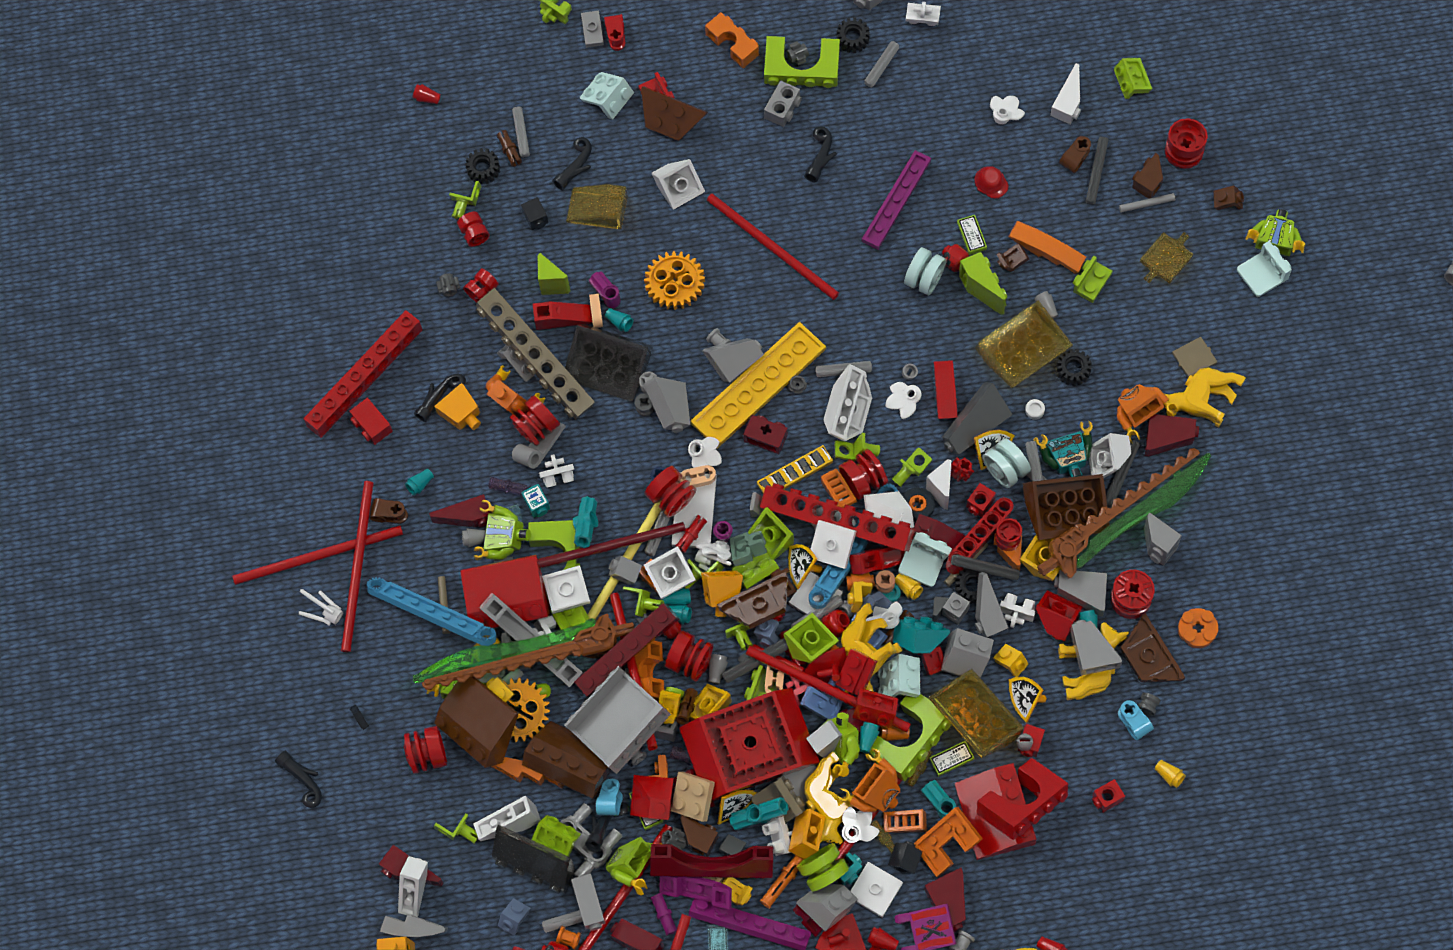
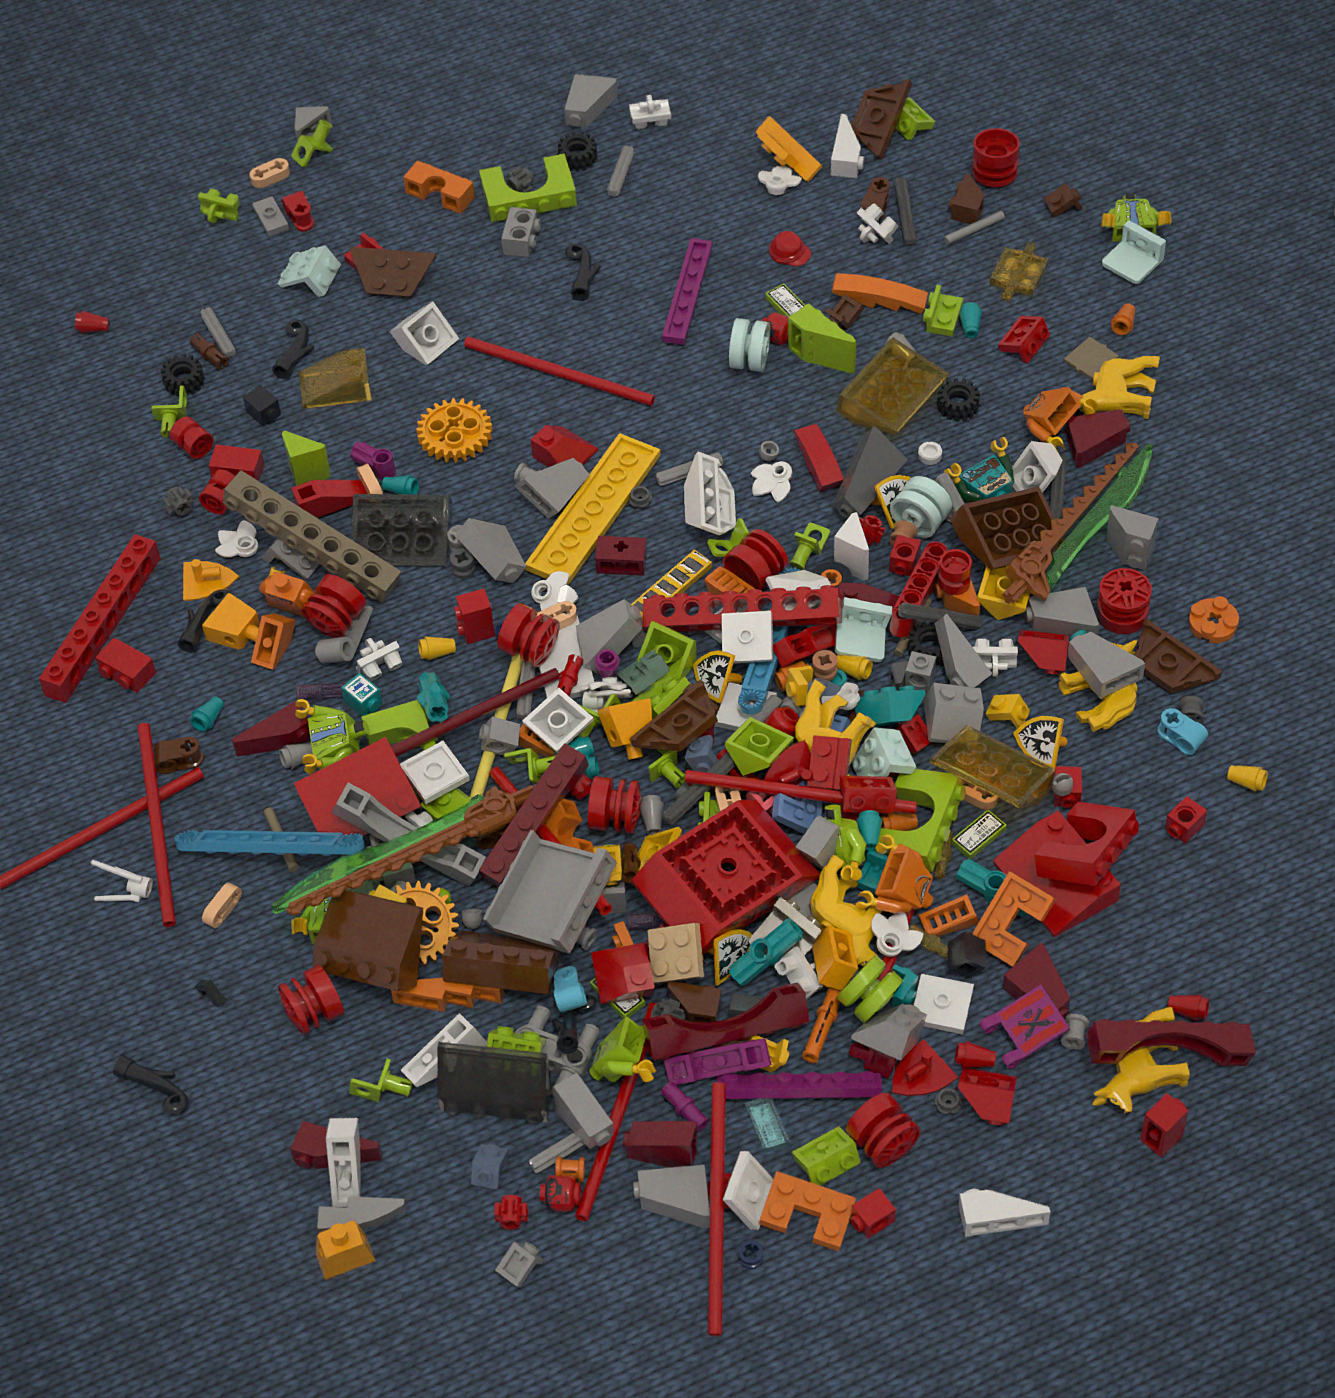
camera: 20 degrees left, 15 degrees down
(386, 648) = (221, 905): none -> light nougat beam
(450, 359) = (204, 578): none -> light orange shield
(479, 333) = (238, 542): none -> white plate
(484, 431) = (272, 640): none -> orange slope
(500, 264) = (236, 459): none -> red brick
(560, 713) = (472, 918): none -> light grey hinge
(602, 474) = (435, 647): none -> yellow cone
(636, 459) = (474, 616): none -> red brick
(731, 504) = (608, 630): none -> light grey slope
(752, 320) = (559, 444): none -> red slope
(860, 768) = (872, 871): none -> teal bracket
(987, 478) = (903, 528): none -> nougat wheel
(1020, 82) = (787, 149): none -> light orange bracket
(1063, 173) = (884, 229): none -> white hips
(1106, 73) = (879, 115): none -> reddish brown wing
(1111, 293) = (970, 318): none -> teal cone
(1148, 323) = (1025, 337): none -> red bracket
(1232, 330) = (1123, 321): none -> orange cone

